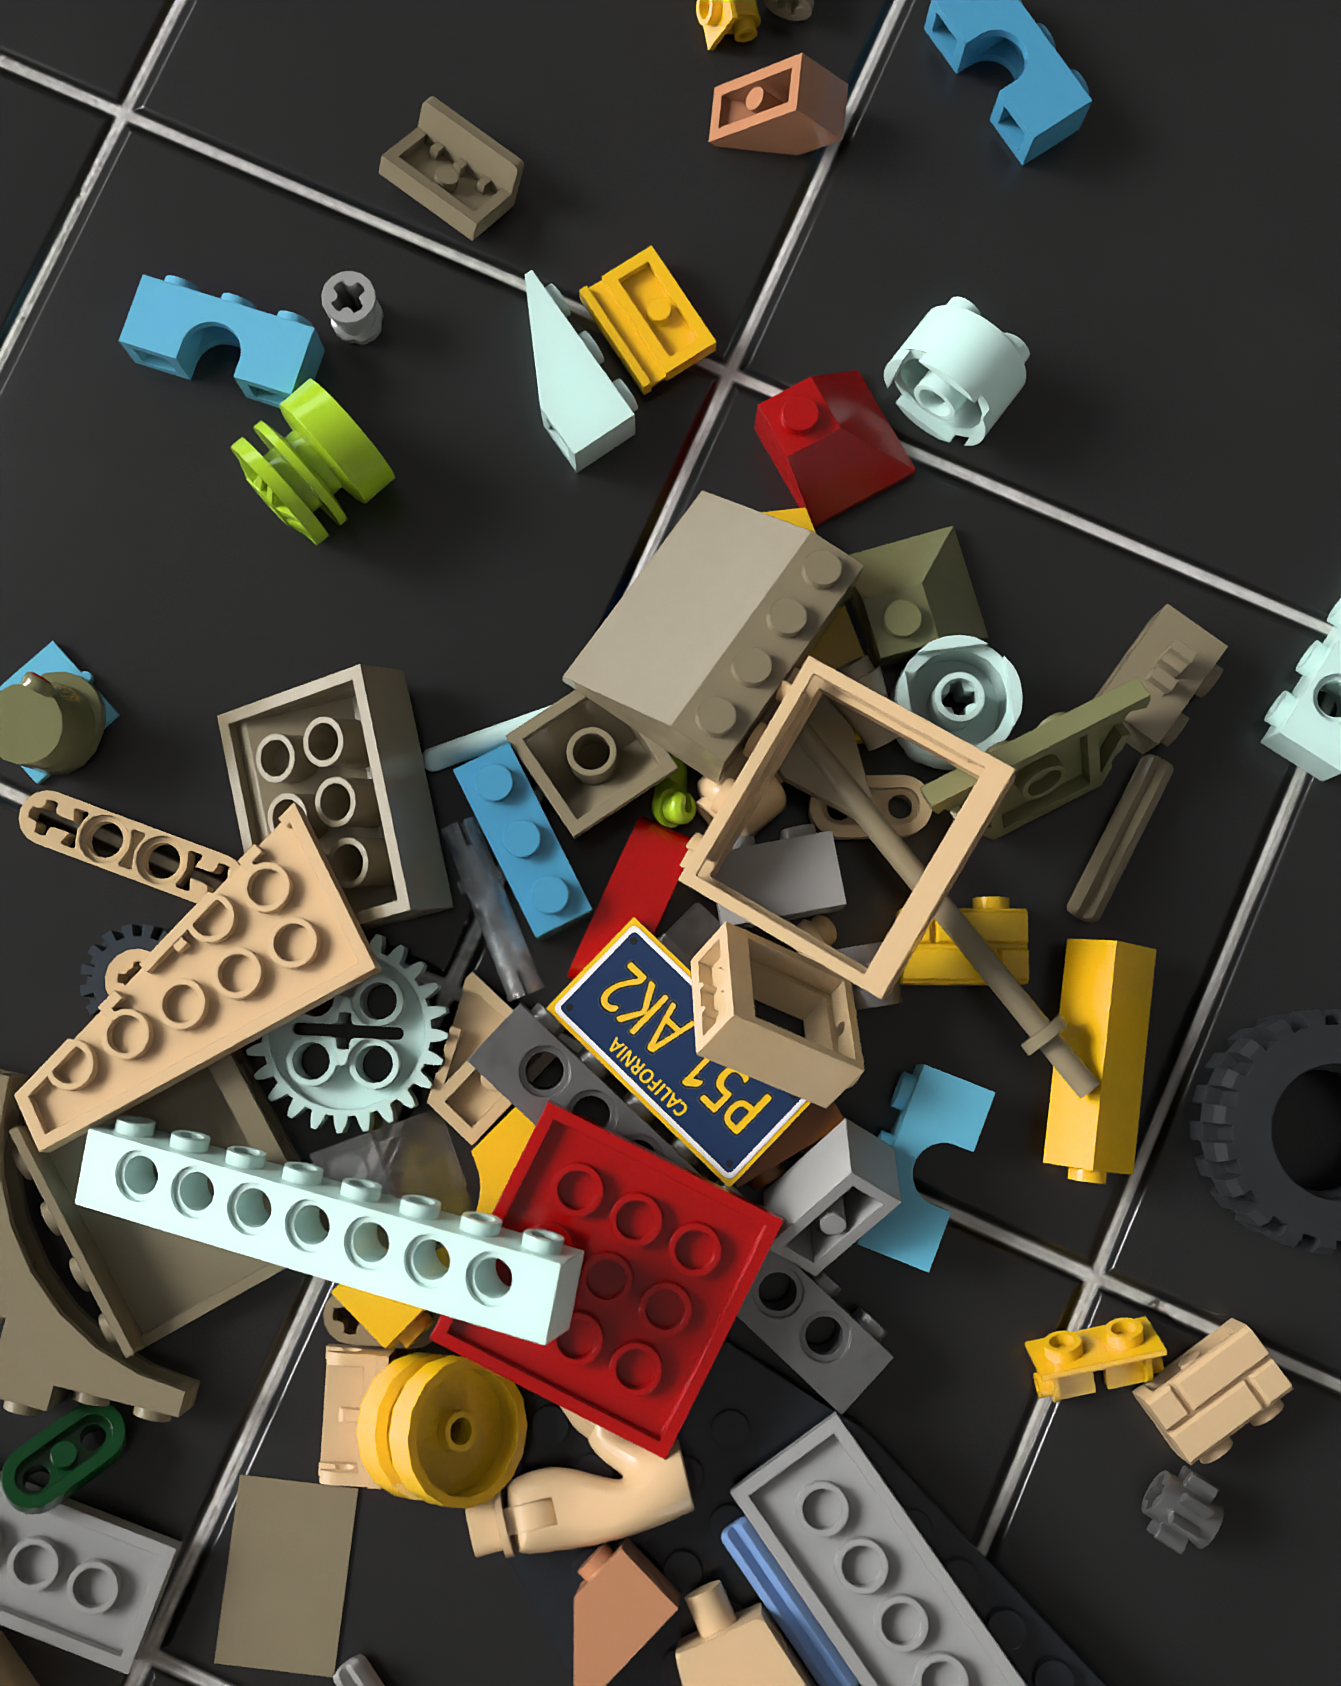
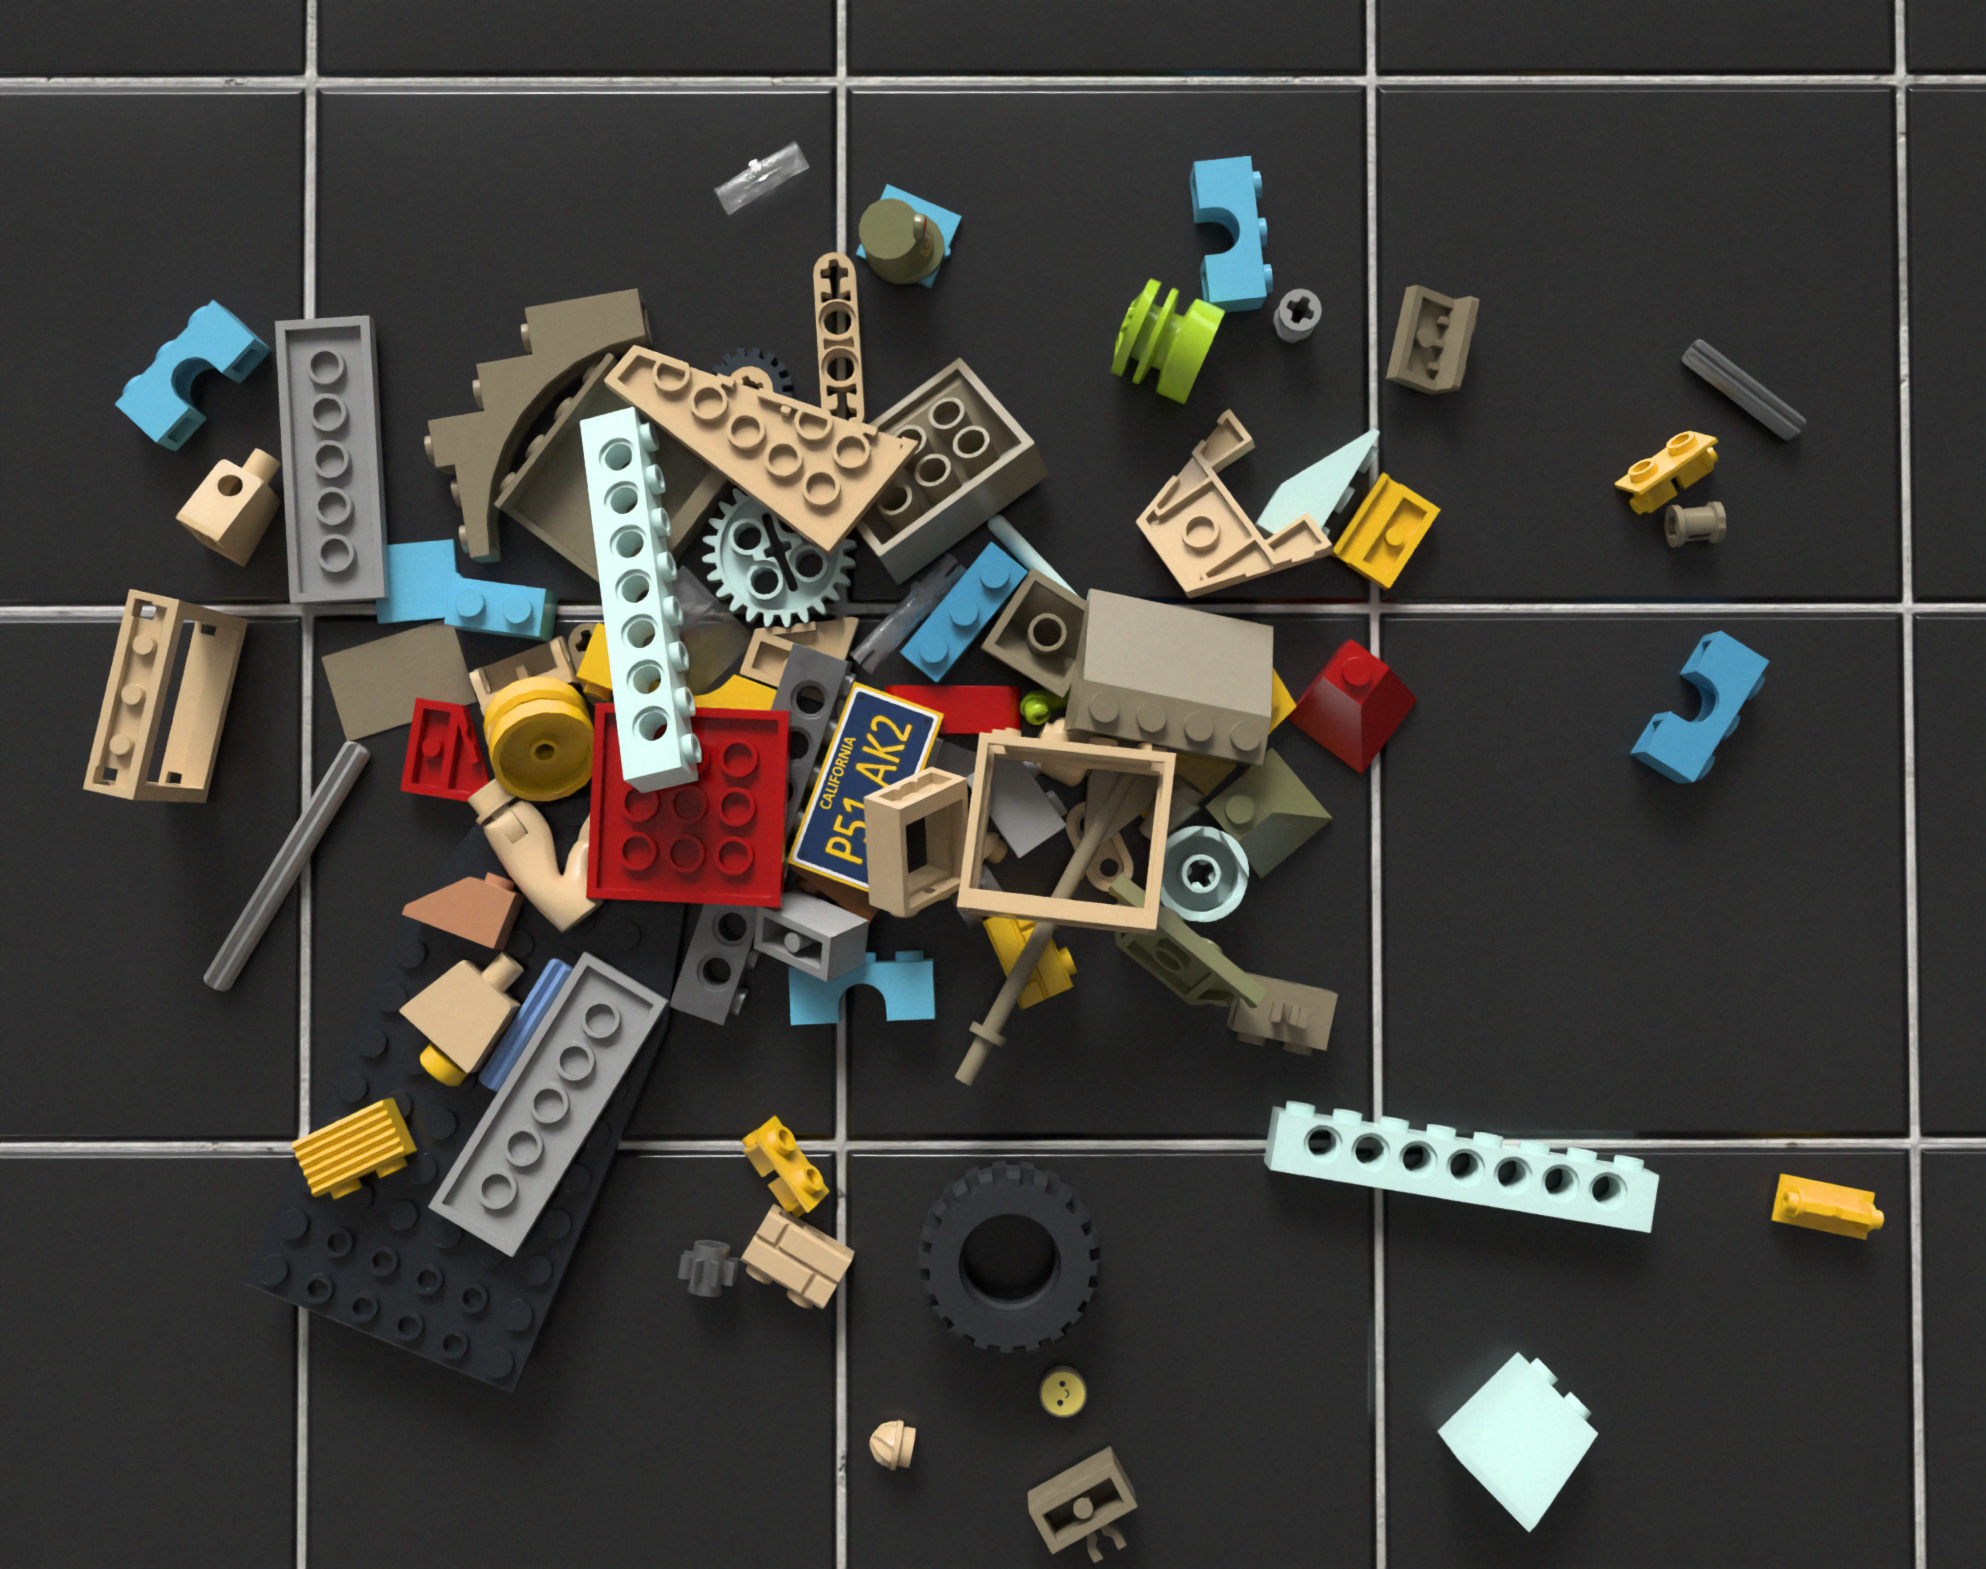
camera: 65 degrees right, 5 degrees up
(62, 1456) = (410, 492): dark green plate -> none
(181, 1493) = (418, 581): none -> medium azure piece
(258, 1407) = (501, 609): none -> medium azure brick
(403, 1560) = (443, 752): none -> red wing
(559, 518) = (1206, 533): none -> tan wing
(780, 109) = (1587, 557): nougat slope -> none
(957, 372) = (1442, 772): light aqua brick -> none
(1108, 1016) = (1011, 1079): yellow brick -> none
(1120, 838) = (1156, 1033): dark tan axle -> none

